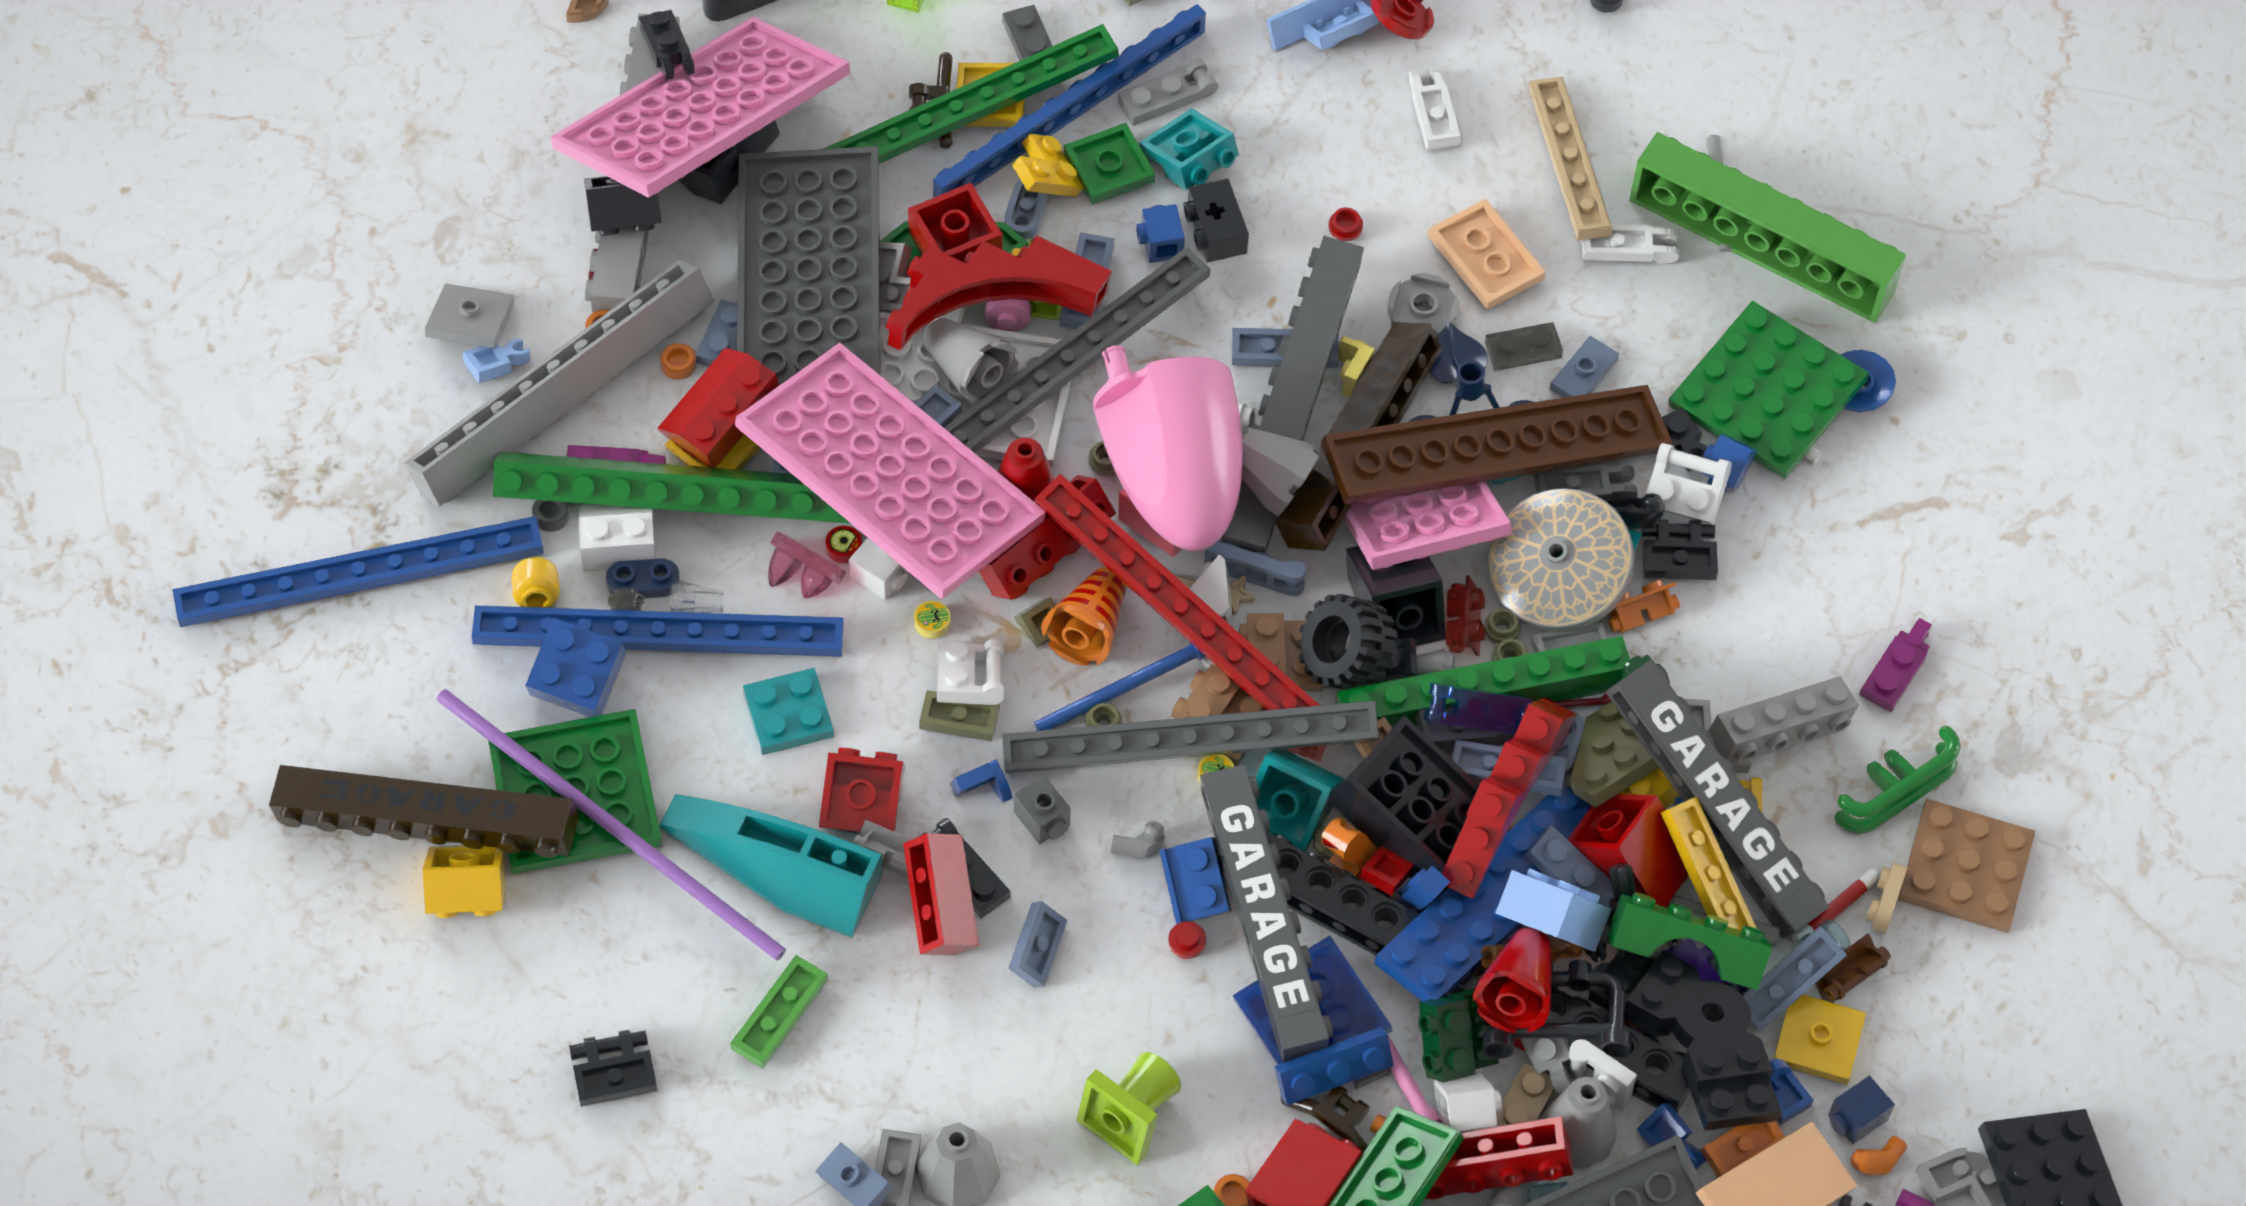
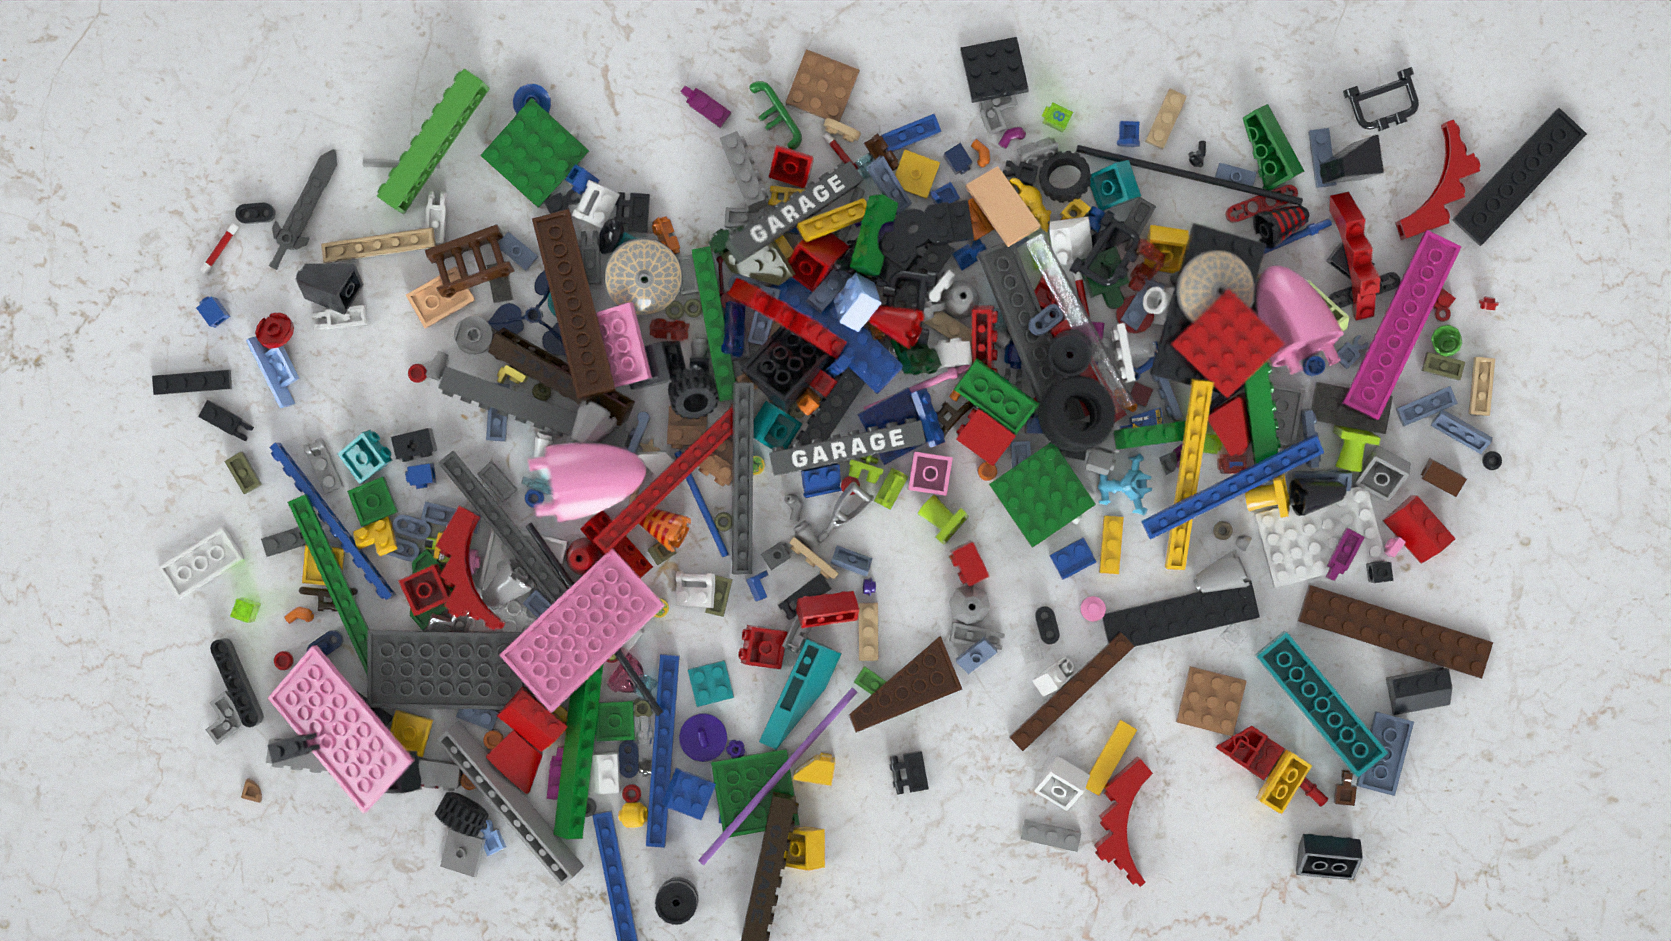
camera: 90 degrees left, 30 degrees up
(368, 657) = (675, 912): none -> black wheel
(543, 301) = (461, 814): none -> black tyre
(573, 575) = (625, 793): none -> red plate
(621, 890) = (817, 770): none -> yellow slope
(639, 392) = (516, 760): none -> red slope
(665, 764) = (738, 744): none -> dark purple plate
(683, 700) = (703, 737): none -> dark purple shield
(690, 230) = (411, 731): none -> yellow plate
(715, 550) = (615, 721): none -> green plate
(737, 589) = (642, 712): none -> olive plate
(781, 596) = (649, 682): none -> clear light blue wheel
(791, 1064) = (916, 684): none -> reddish brown wing
(822, 38) = (283, 660): none -> red plate
(850, 103) = (325, 643): none -> dark blue plate
(852, 533) = (619, 655): none -> black piece
(896, 984) = (868, 631): none -> tan plate
(903, 64) = (301, 613): none -> orange arm
(987, 979) = (869, 586): none -> dark purple plate
(1040, 875) = (813, 559): none -> tan plate
(1043, 1152) = (969, 563): none -> red brick
(1064, 226) = (413, 527): none -> sand blue plate
(1086, 863) = (805, 533): none -> light grey cone
(1126, 923) = (840, 515): none -> light grey piece
(1163, 342) = (497, 481): none -> flat silver plate
(1185, 1014) = (891, 488): none -> lime hinge
(1217, 978) = (874, 472): none -> lime hips
(1221, 1075) = (930, 473): none -> bright pink brick
(1326, 412) = (541, 392): none -> olive plate
(1373, 257) = (437, 366): none -> light grey cone
(1492, 82) = (330, 284): none -> black slope
(1569, 29) = (298, 218): none -> dark grey sword
(1578, 271) = (463, 244): none -> reddish brown fence
(1804, 800) = (791, 166): none -> red slope
(1899, 1024) = (912, 133): none -> blue plate

